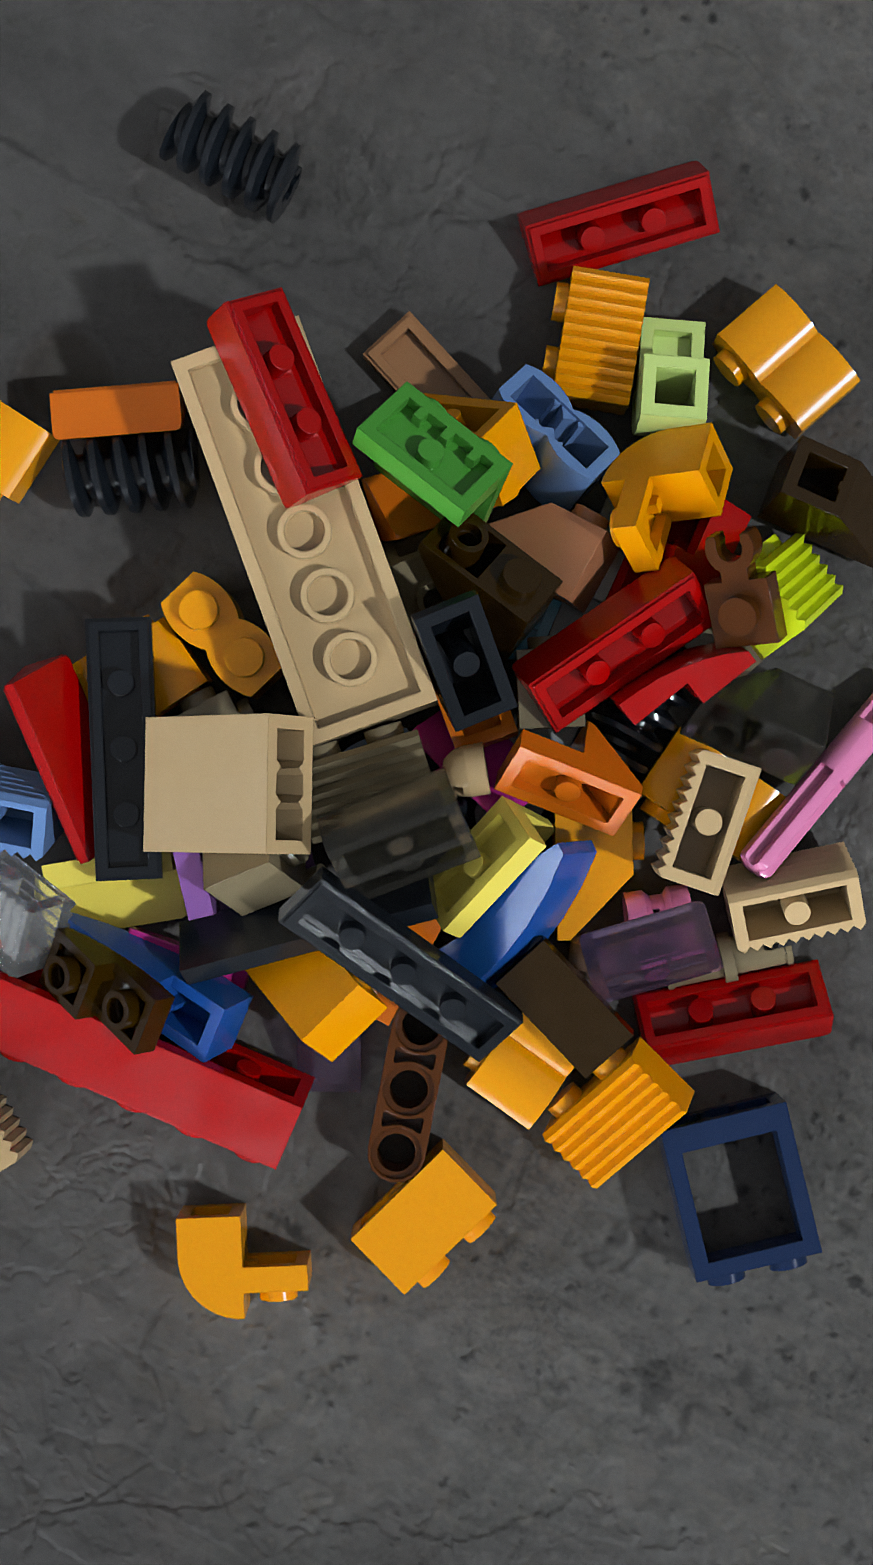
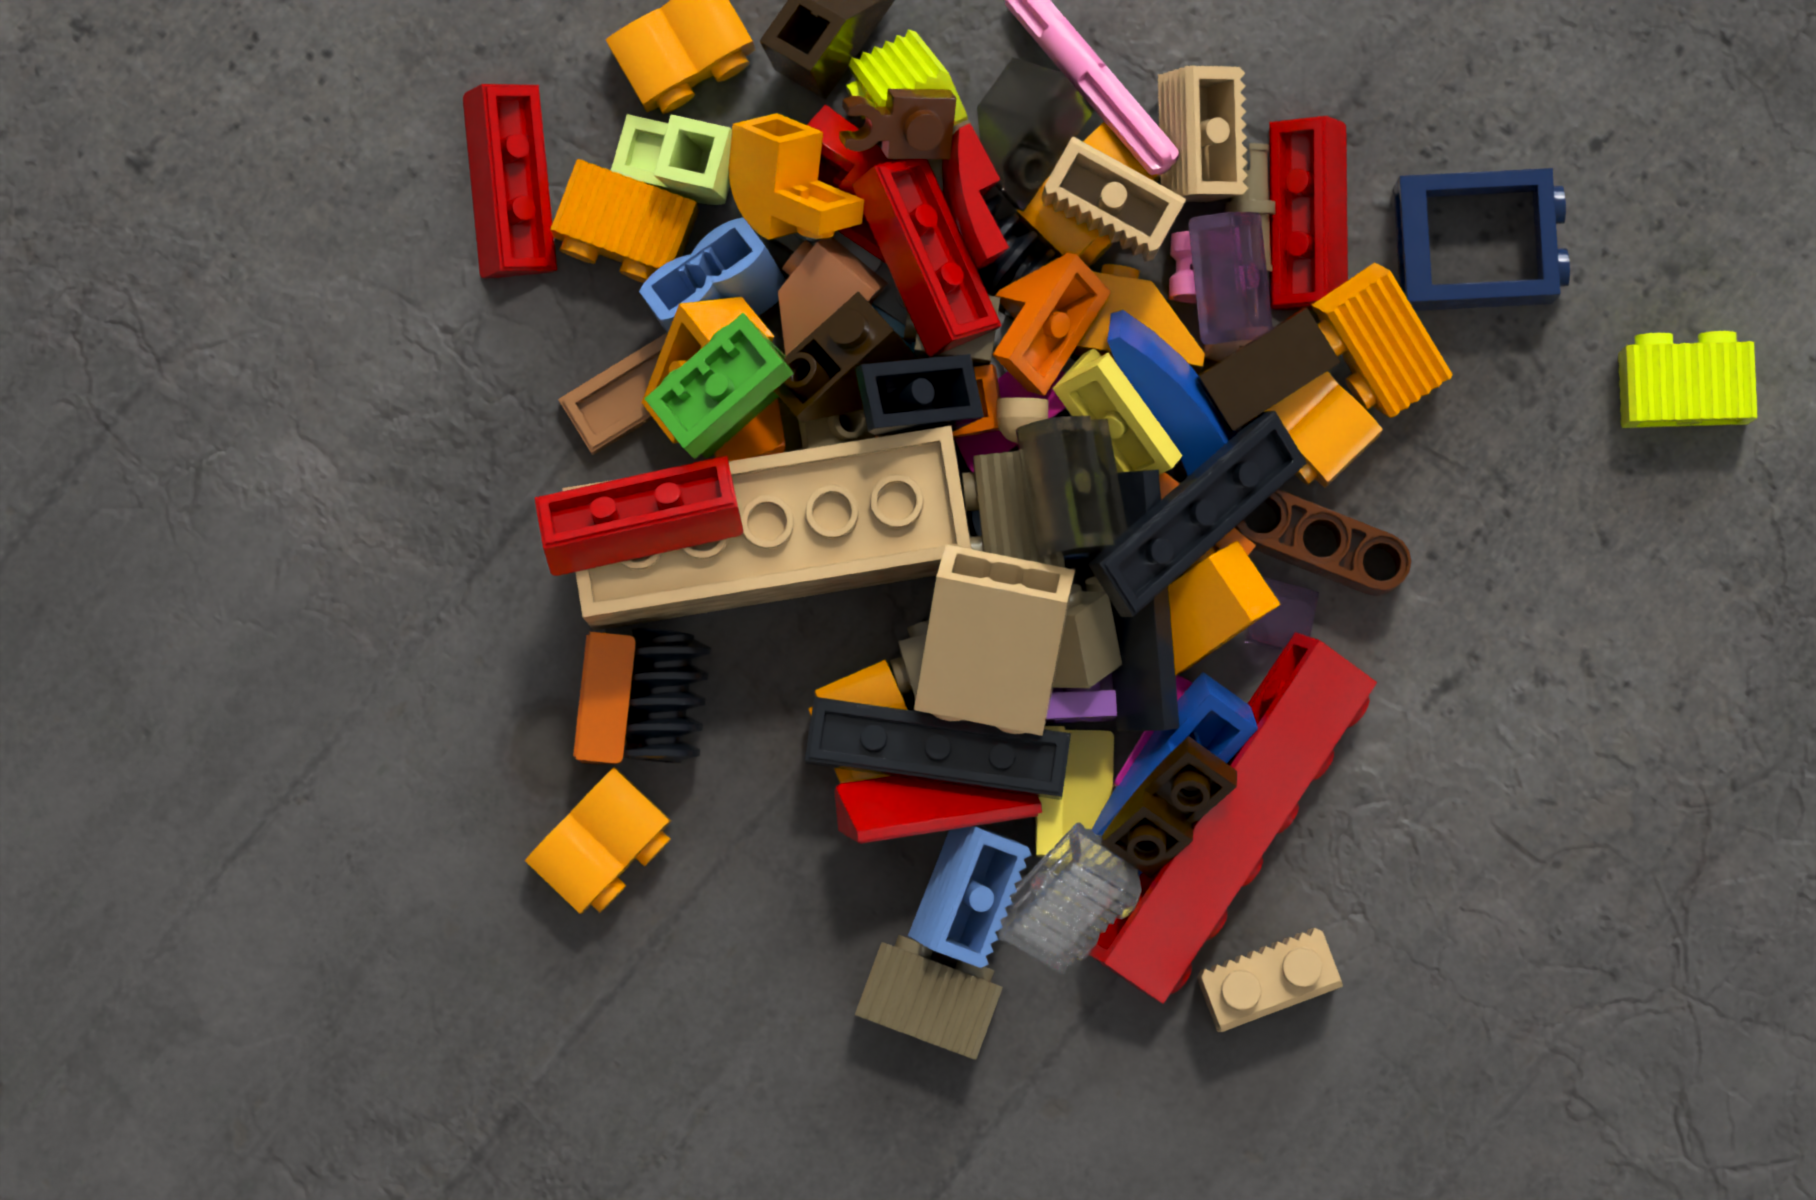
camera: 75 degrees left, 5 degrees down
(214, 623) = (860, 626): light orange brick -> none
(220, 1269) = (1463, 761): light orange brick -> none
(233, 156) = (374, 537): black piece -> none
(425, 1219) = (1454, 548): light orange brick -> none
(633, 1418) = (1687, 382): none -> neon yellow brick

